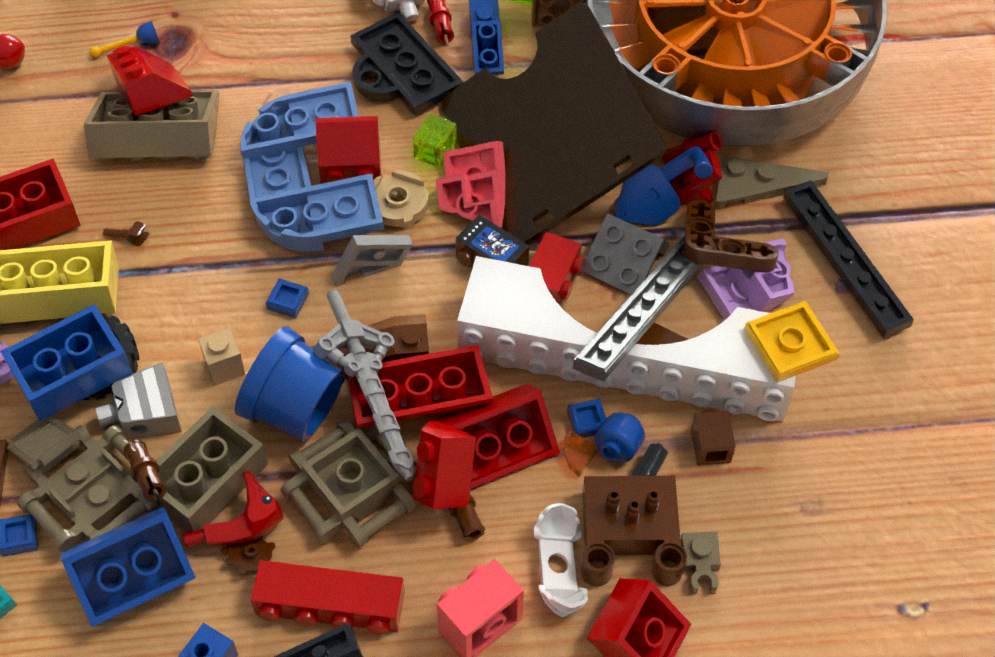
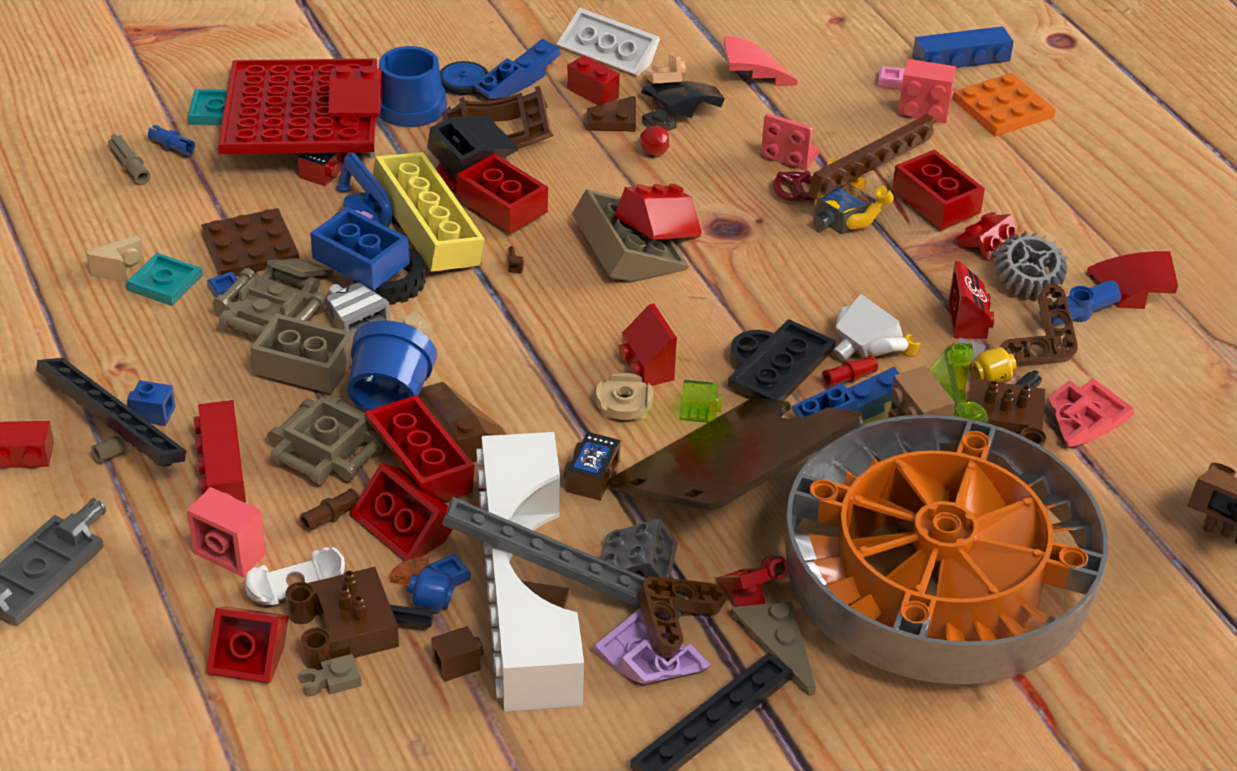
camera: 70 degrees right, 15 degrees down
(127, 566) = (205, 334): blue brick -> none
(144, 470) = (278, 309): reddish brown pin -> none
(145, 35) = (721, 208): hinge -> none
(248, 554) = (250, 403): reddish brown piece -> none
(258, 519) = (275, 394): red animal -> none
(279, 180) = (582, 338): medium blue plate -> none
(287, 298) = (492, 362): blue tile -> none
(365, 366) = (413, 395): light grey bar -> none
(370, 255) = (552, 392): light grey wing -> none
(443, 466) = (341, 464): red slope -> none
(474, 182) = (651, 440): coral slope -> none
(558, 263) = (590, 508): red brick -> none
(649, 195) = (701, 546): blue piece -> none
(791, 341) = (550, 653): yellow tile -> none

